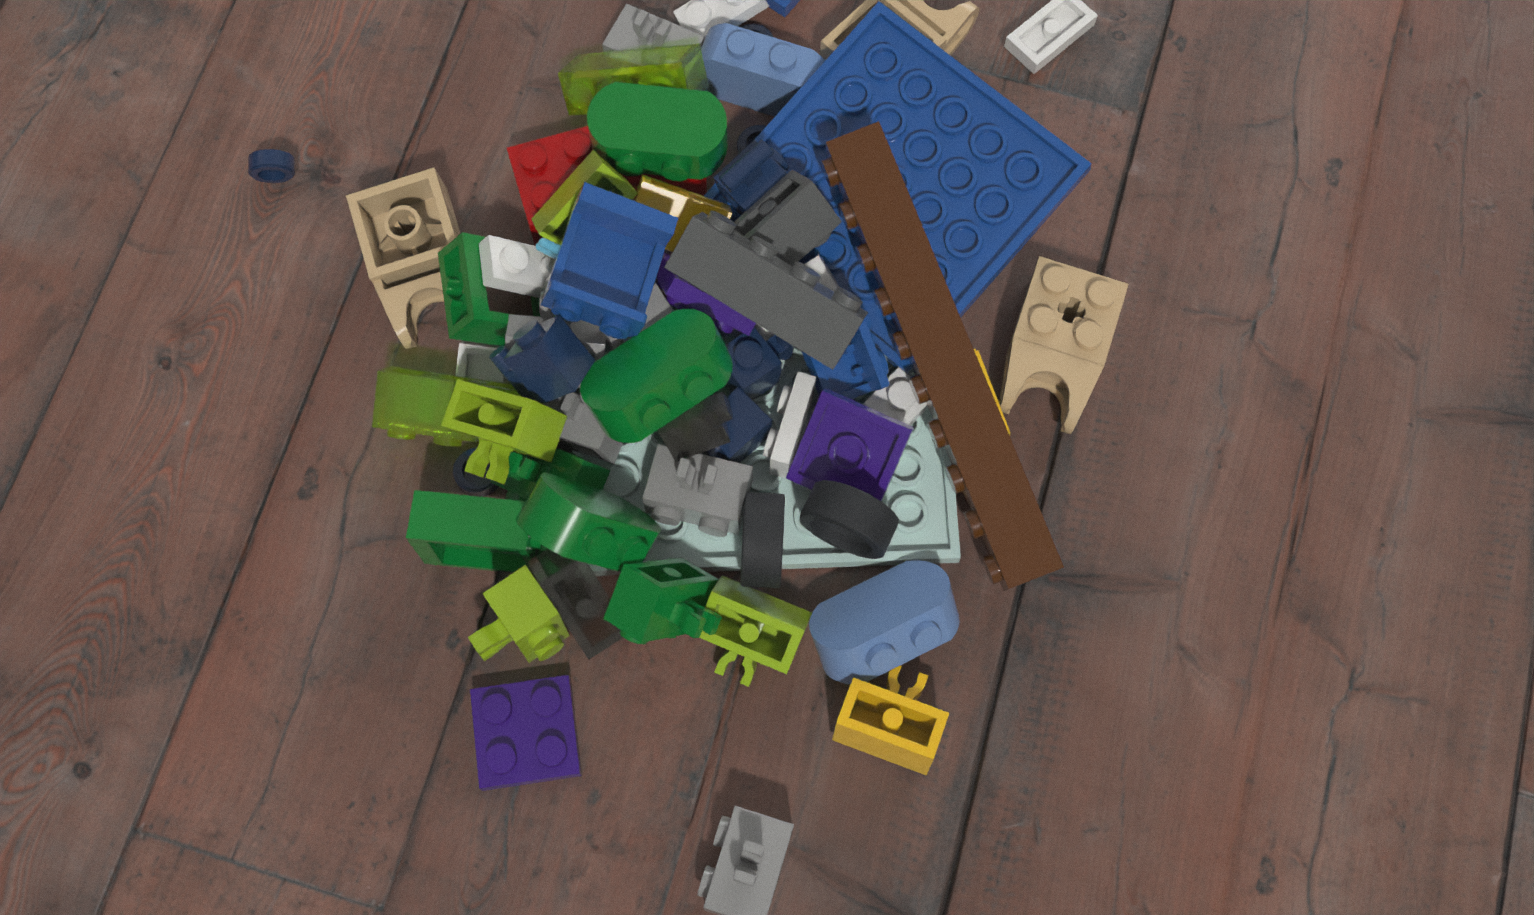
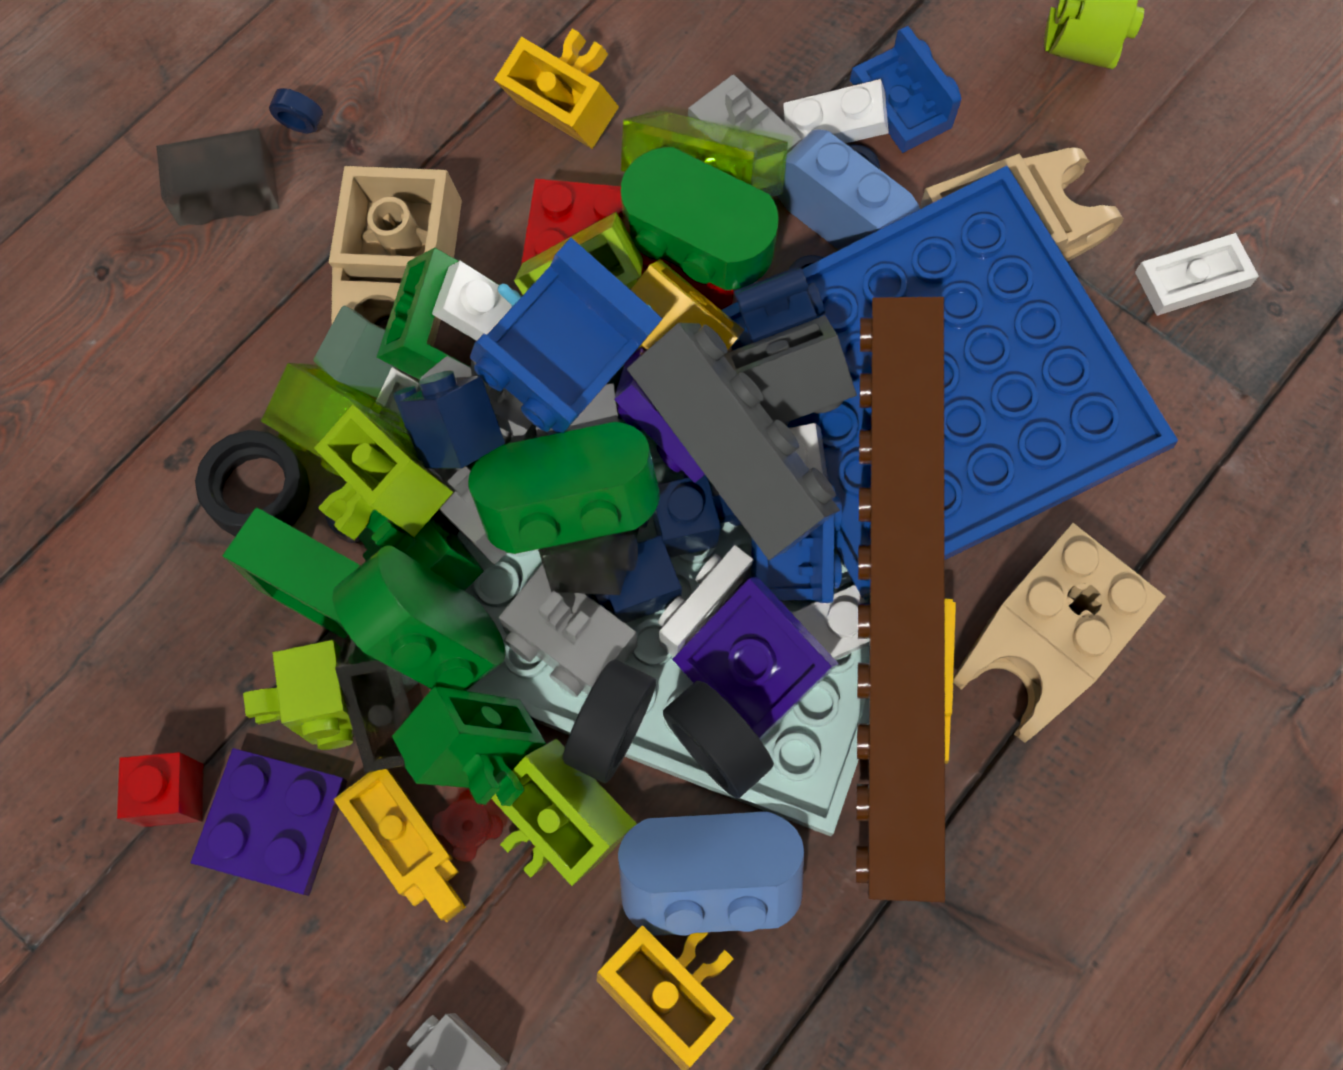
camera: 25 degrees right, 0 degrees up
(232, 246) = (217, 177): none -> clear smoke brick
(365, 454) = (233, 452): none -> black tyre
(423, 342) = (351, 352): none -> sand green panel
(430, 742) = (160, 789): none -> red brick
(489, 66) = (560, 87): none -> yellow brick
(637, 701) = (401, 842): none -> yellow hinge
(677, 656) = (450, 825): none -> clear red plate

